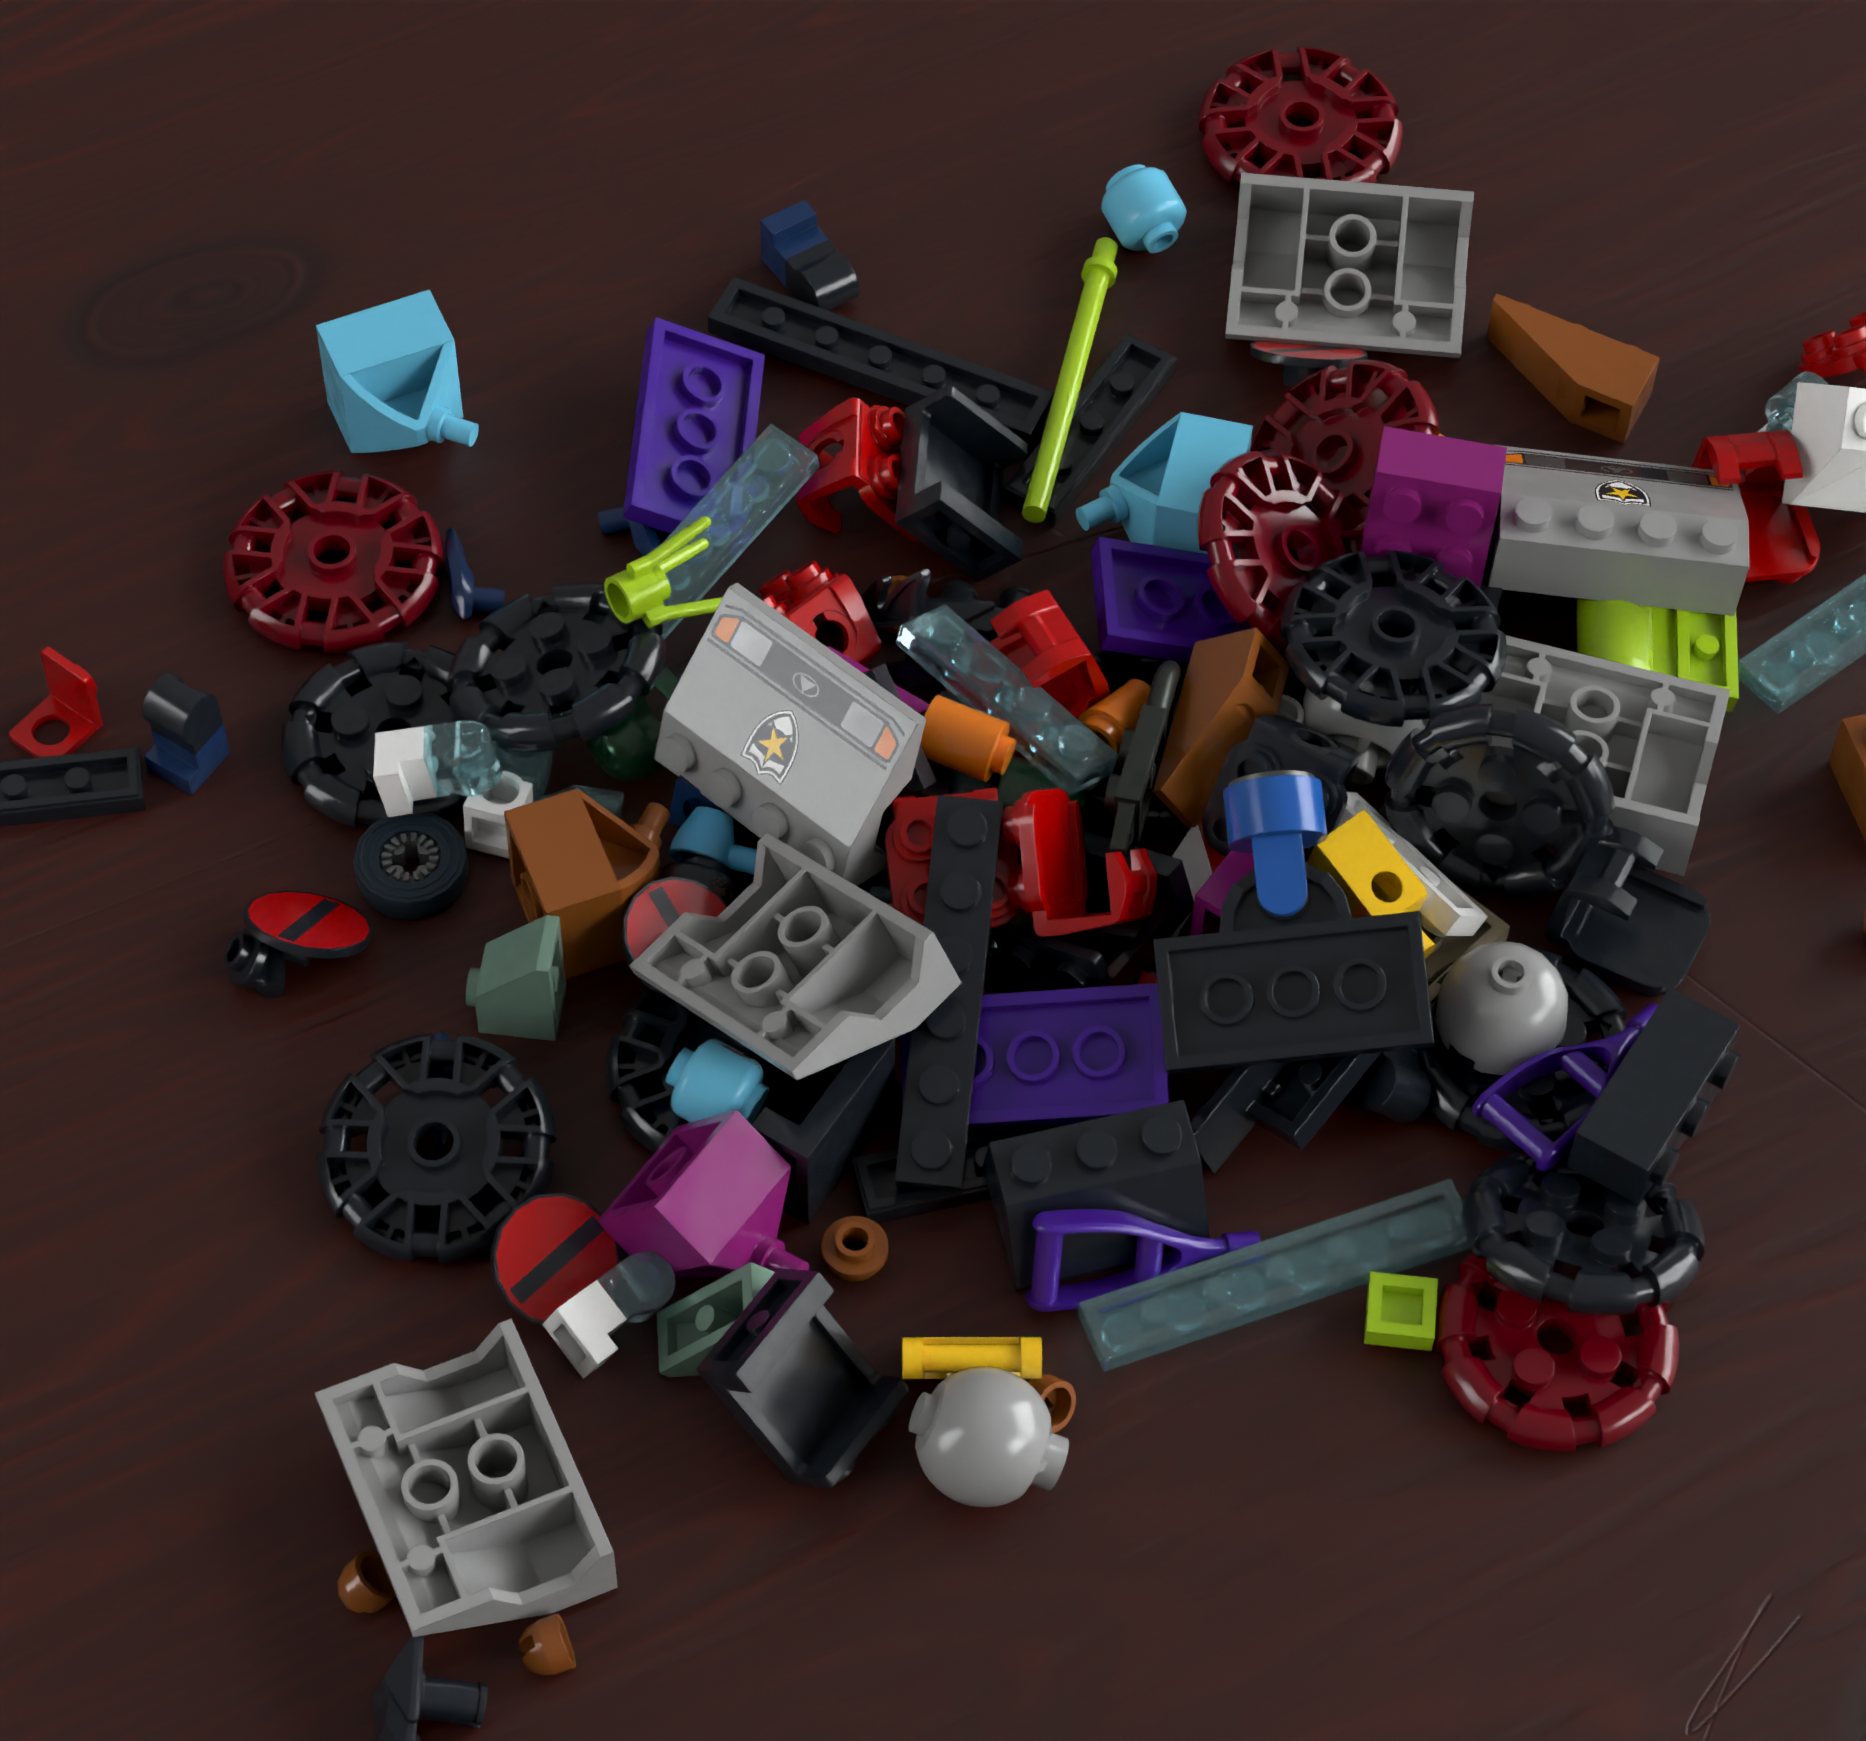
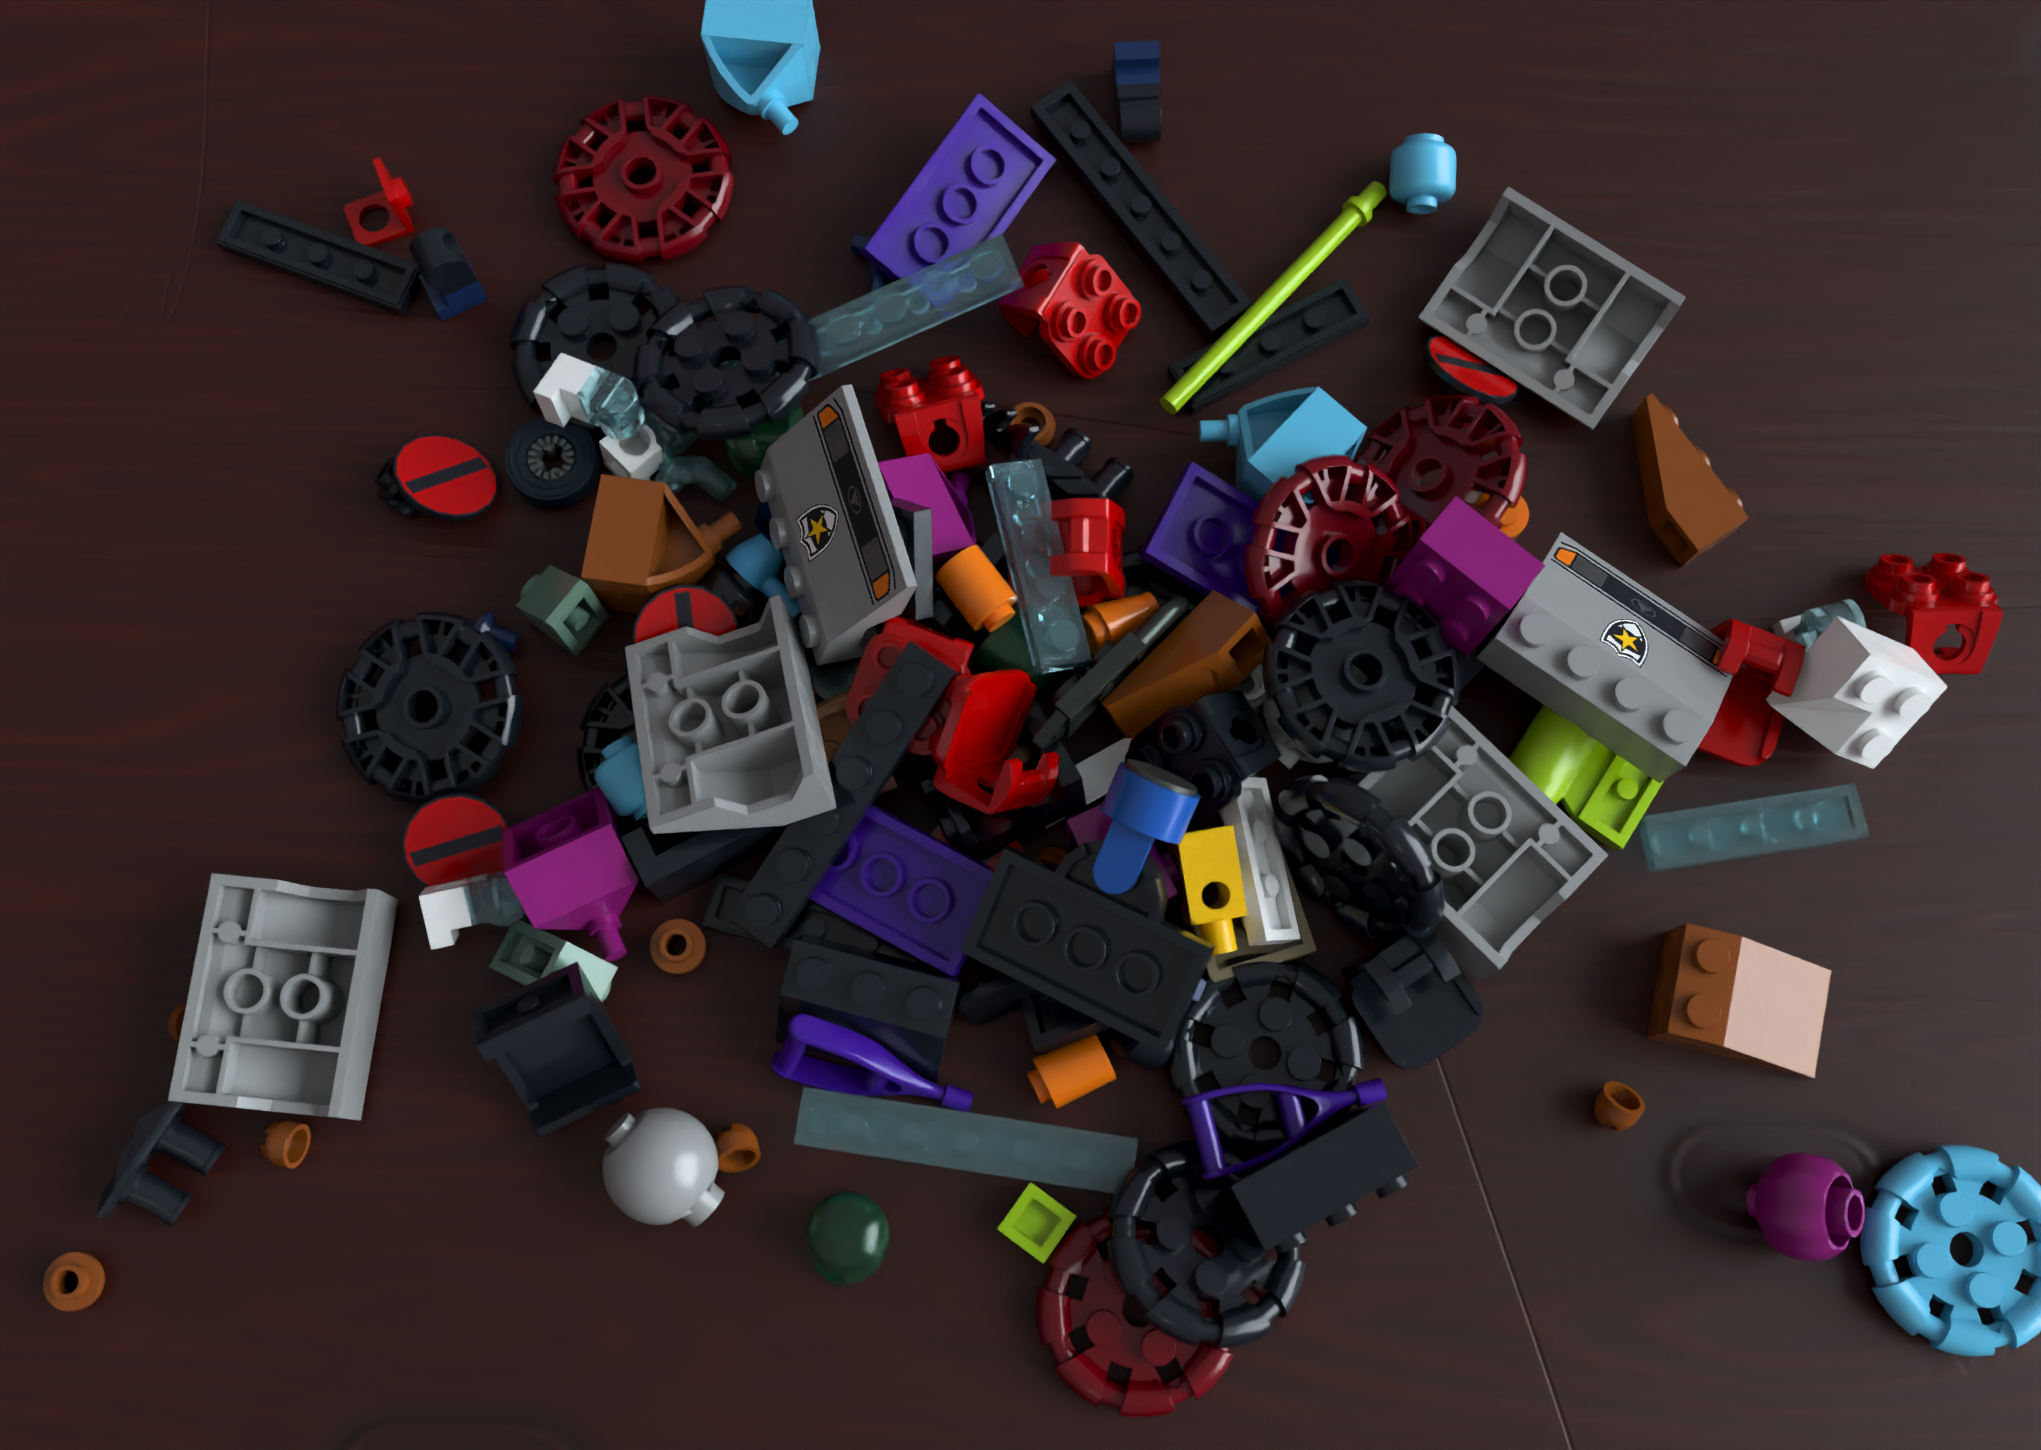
camera: 30 degrees right, 20 degrees up
(461, 582) = (724, 242): dark blue bar -> none
(644, 586) = (807, 336): lime plant -> none
(947, 1355) = (694, 1089): yellow plate -> none
(954, 482) = (1123, 350): black panel -> none
(1220, 1403) = (847, 1237): none -> clear green helmet
(1261, 102) = (1594, 183): dark red plate -> none
(1342, 1153) = (1070, 1071): none -> orange brick
(1502, 1006) = (1242, 1041): light grey cylinder -> none

